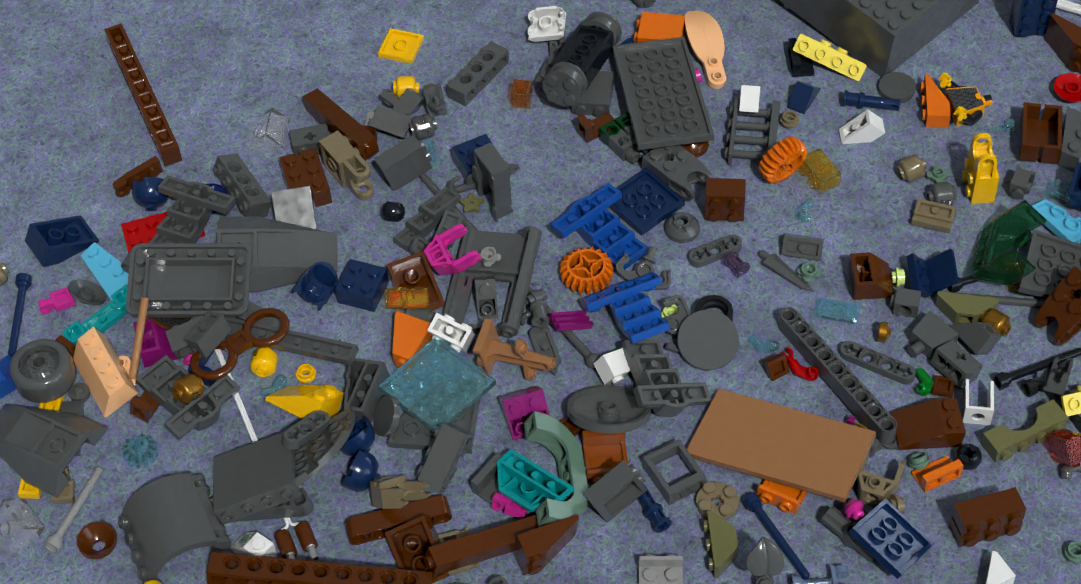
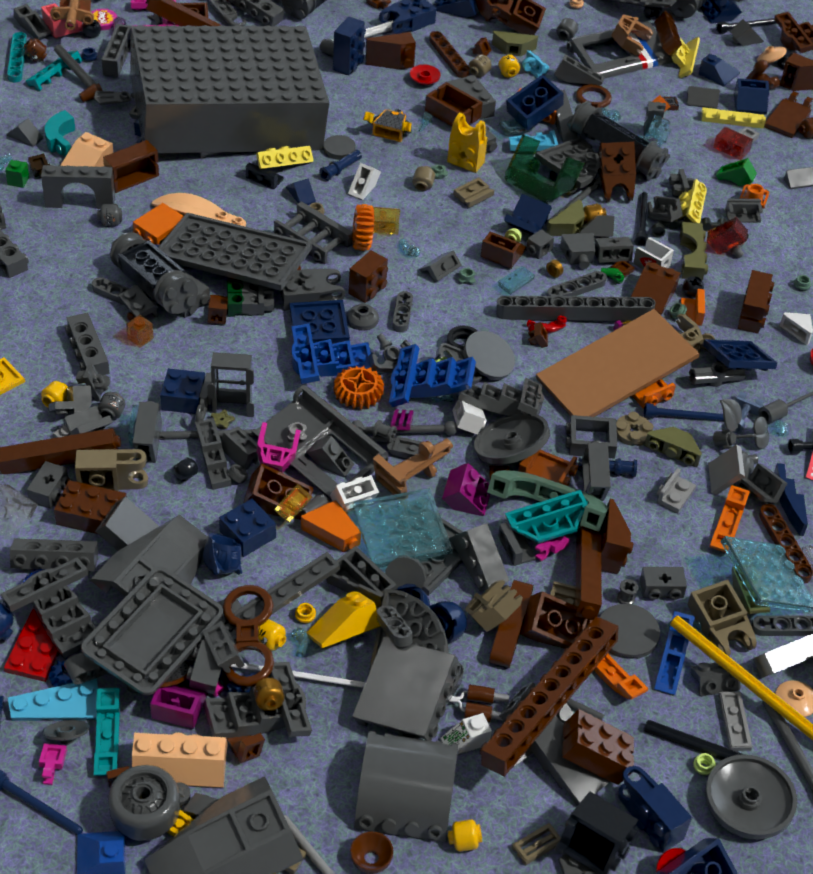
camera: 65 degrees left, 5 degrees down
(138, 338) = (180, 702): medium nougat bar -> none
(140, 451) = (293, 773): clear light blue gear -> none
(546, 24) = (82, 279): white slope -> none
(736, 264) = (428, 306): clear purple bush -> none
(749, 98) = (284, 213): white slope -> none
(764, 346) = (514, 333): clear light blue arm -> none
(777, 265) = (449, 288): dark grey bar -> none
(853, 510) = (704, 359): dark pink arm -> none
(936, 105) = (376, 137): orange slope -> none
(942, 193) = (459, 177): dark grey head -> none

